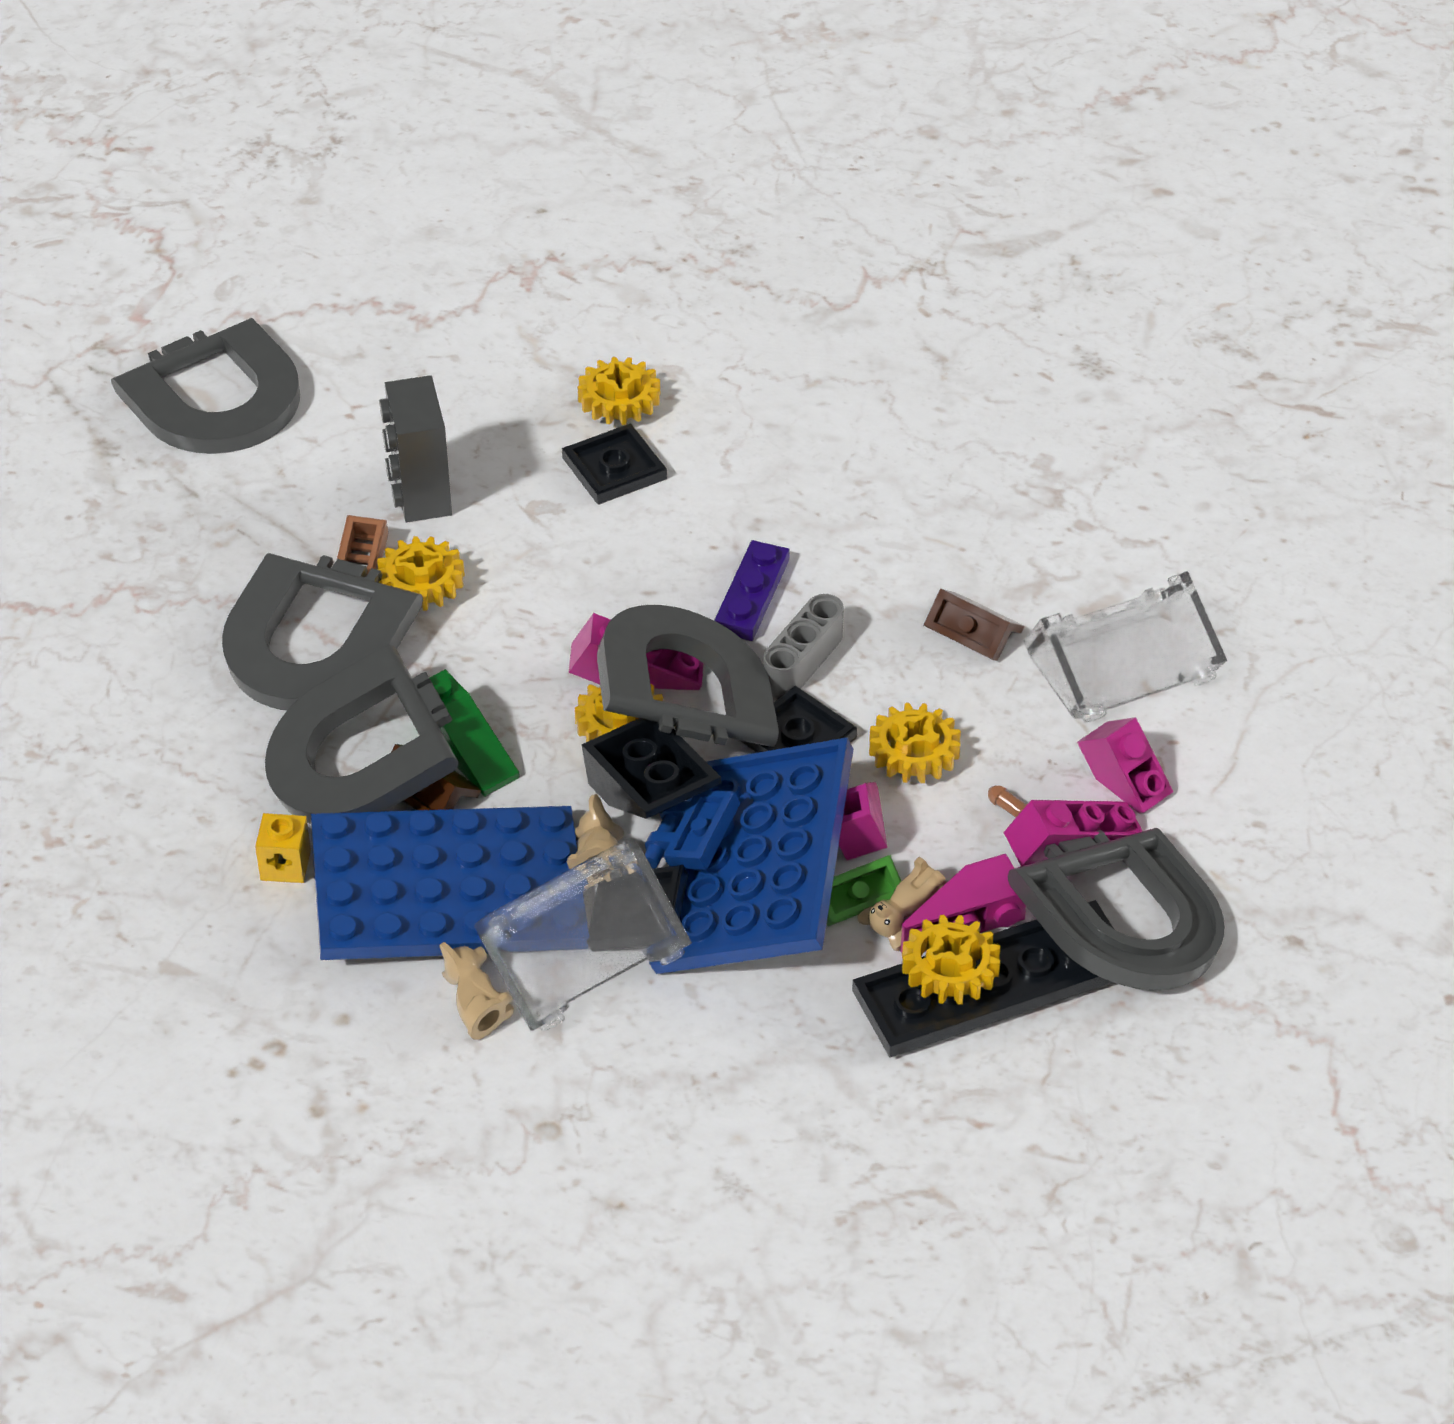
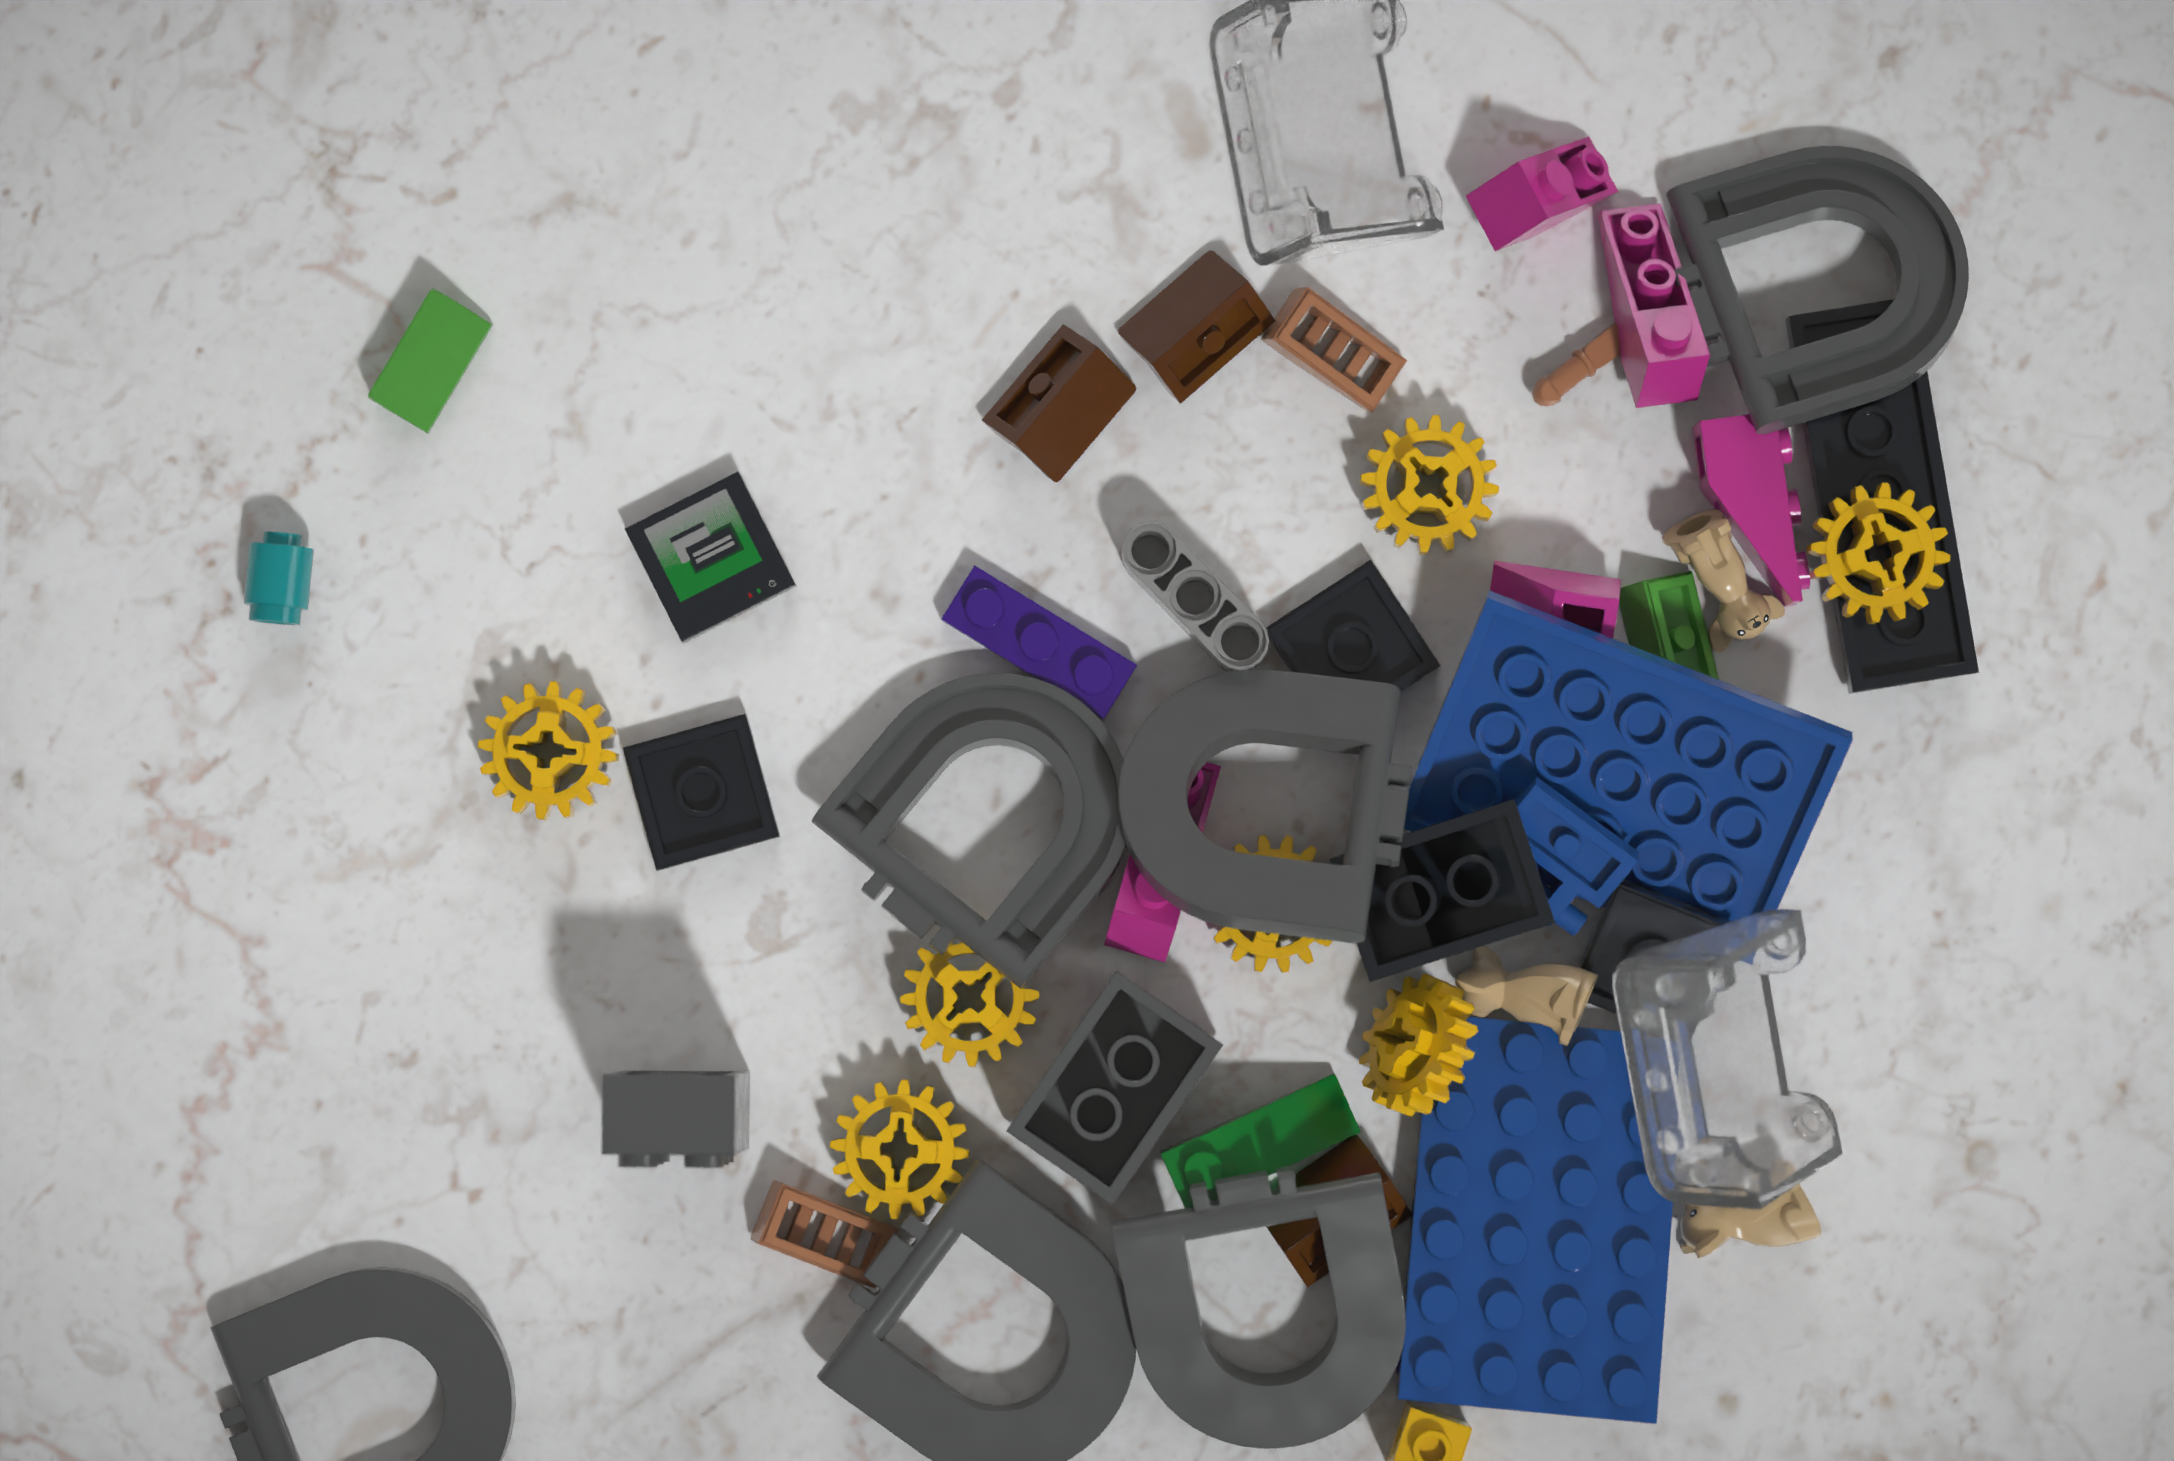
camera: 75 degrees left, 40 degrees up
(486, 649) = (1114, 1087): none -> dark grey brick
(525, 587) = (990, 1017): none -> yellow gear
(547, 784) = (1418, 1045): none -> yellow gear
(646, 530) = (913, 755): none -> dark grey piece
(683, 273) = (278, 578): none -> teal brick
(755, 443) = (710, 557): none -> tile
(829, 312) = (429, 360): none -> bright green slope
(900, 572) = (1060, 403): none -> reddish brown panel
(995, 663) = (1301, 354): none -> nougat slope

